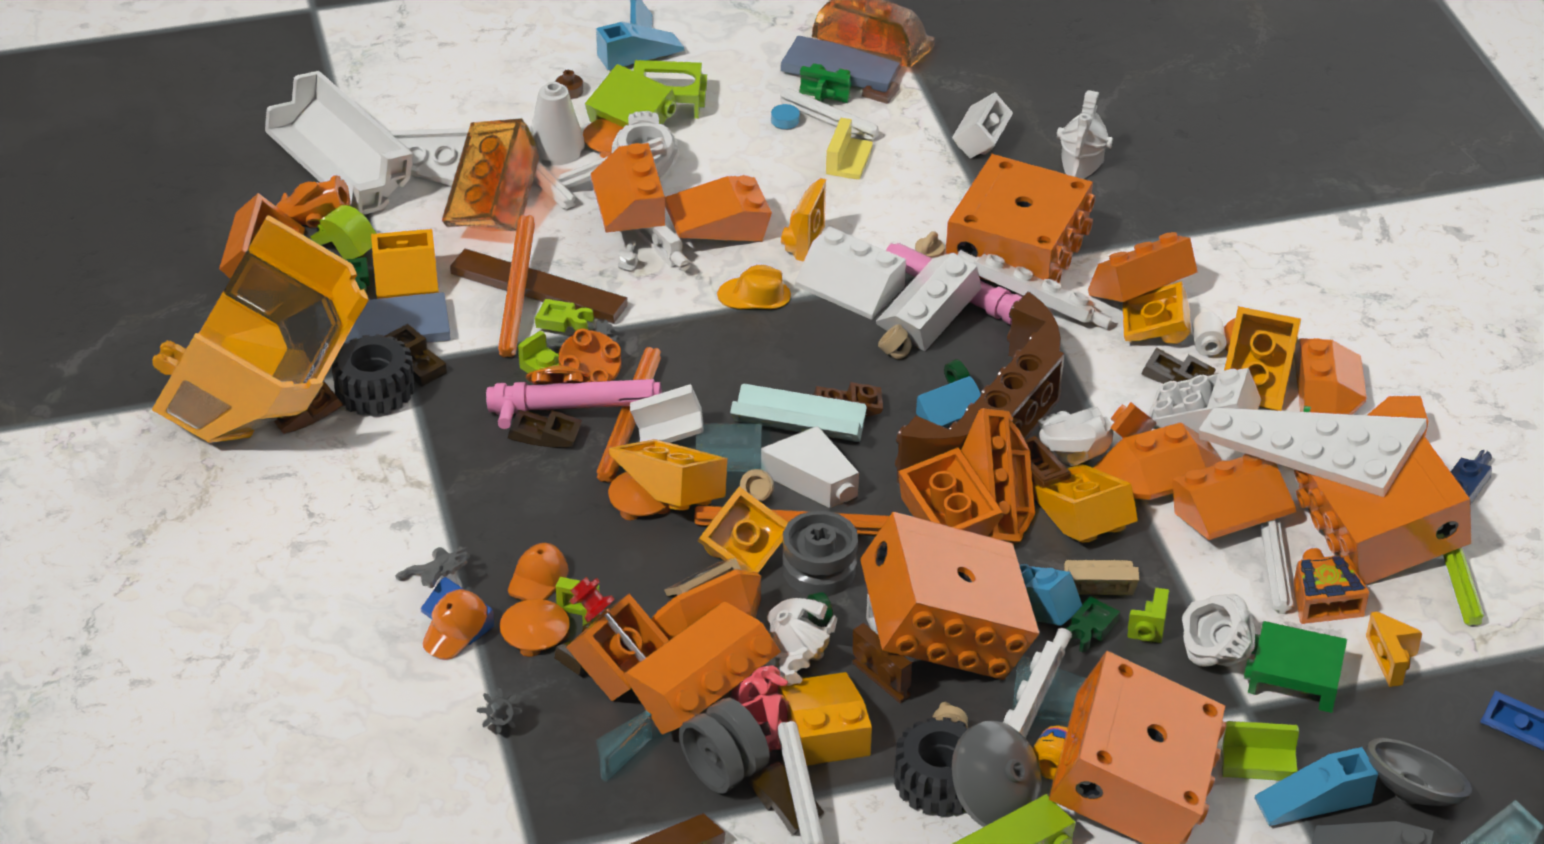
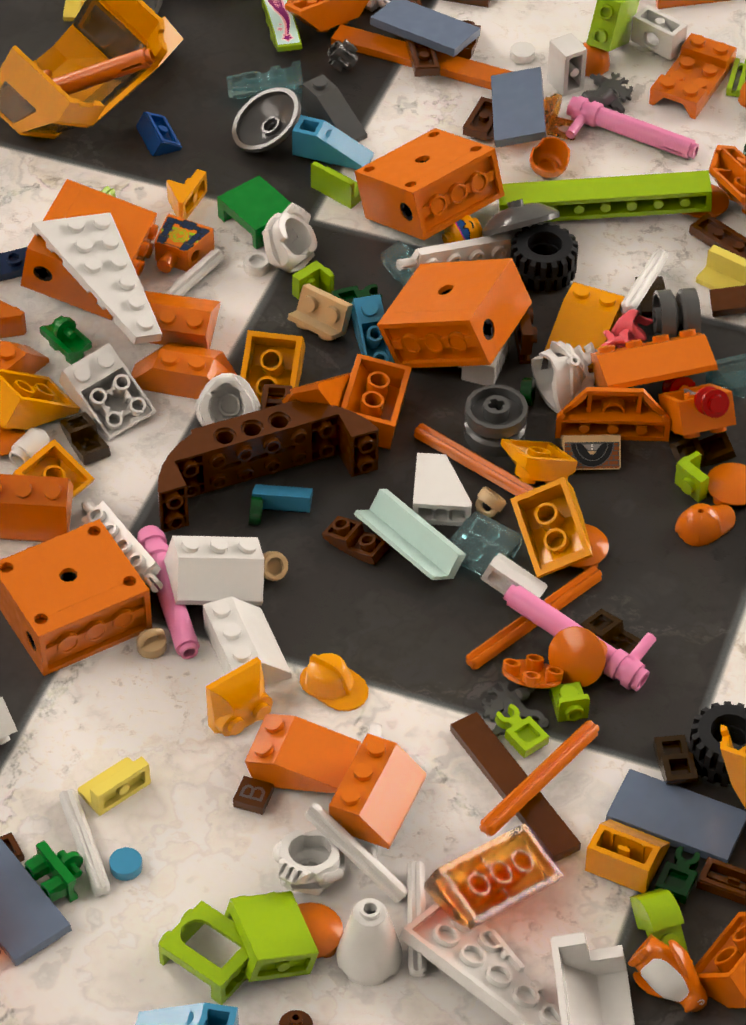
camera: 145 degrees left, 5 degrees up
(1131, 421) = (185, 384): orange slope -> none

